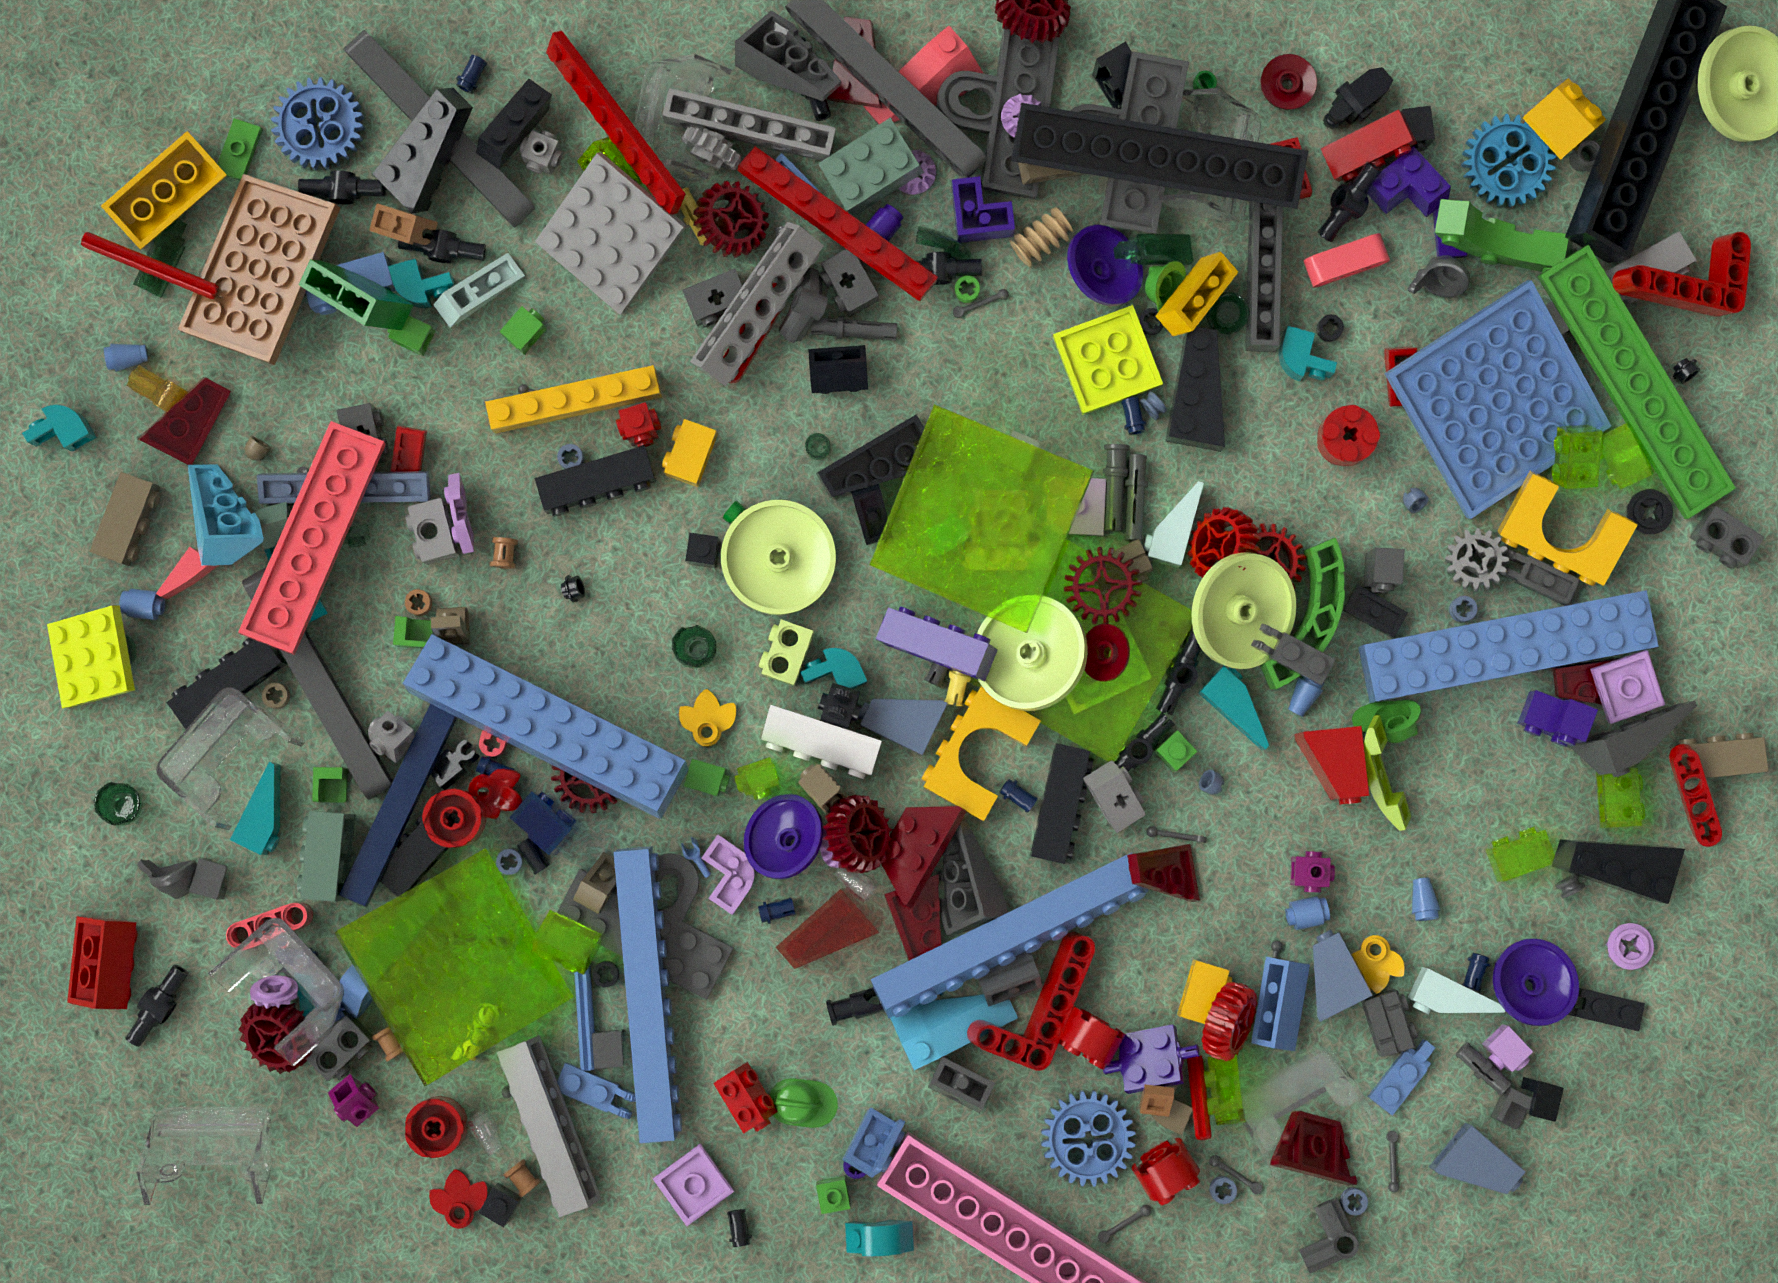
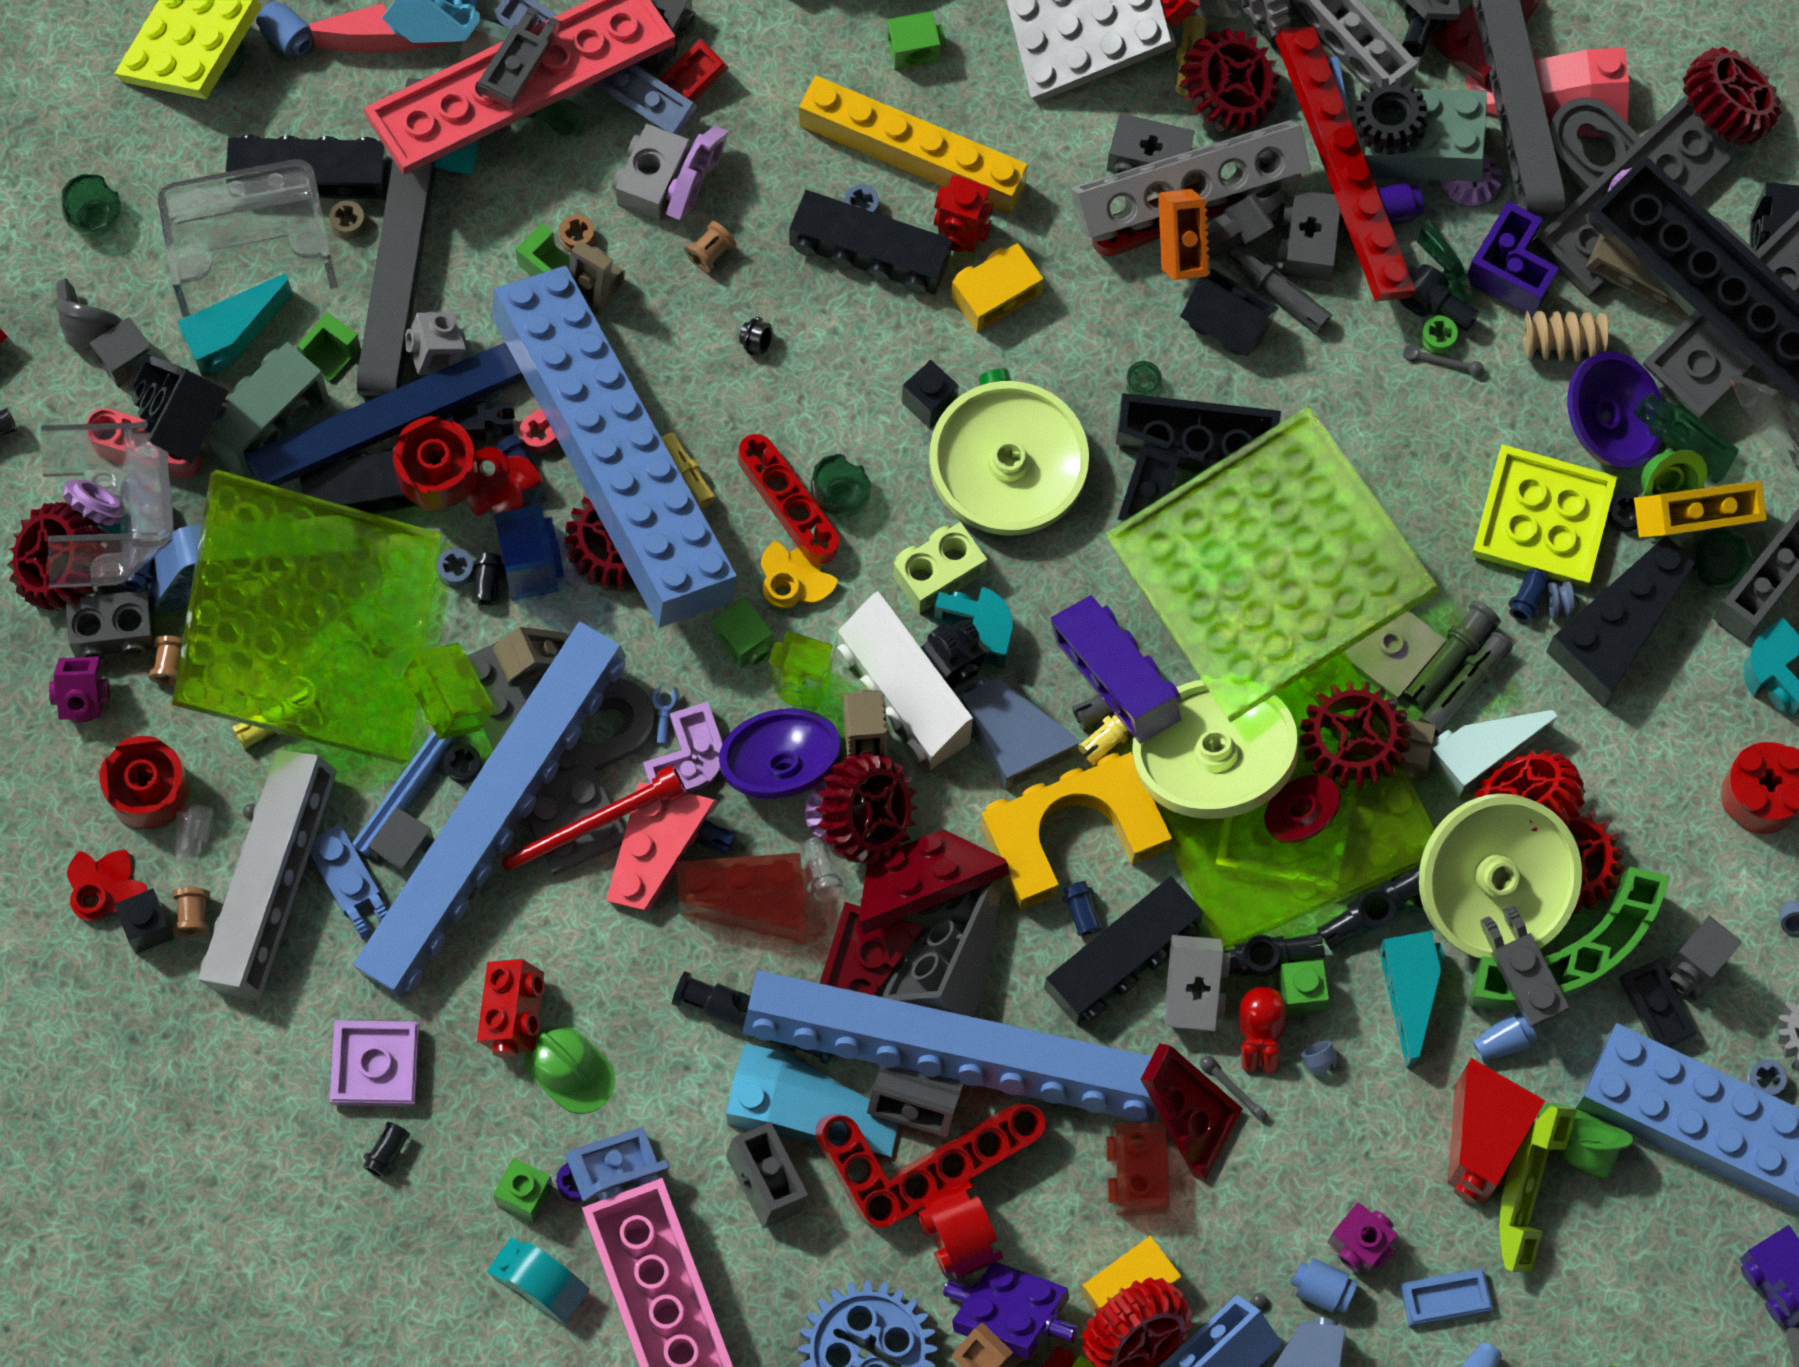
camera: 35 degrees right, 15 degrees down
(276, 899) = (176, 406): none -> black wedge
(305, 532) = (517, 59): none -> dark grey hinge
(596, 704) = (690, 471): none -> light yellow pin
(669, 674) = (793, 496): none -> red beam
(736, 909) = (664, 786): none -> red piece
(751, 939) = (653, 845): none -> coral wing
(780, 345) = (1183, 234): none -> orange brick
(839, 163) = (1387, 97): none -> black tyre
(1160, 923) = (1139, 1168): none -> clear red brick
(1168, 788) = (1262, 1024): none -> red piece
(1376, 867) = (1446, 1297): none -> medium blue tile

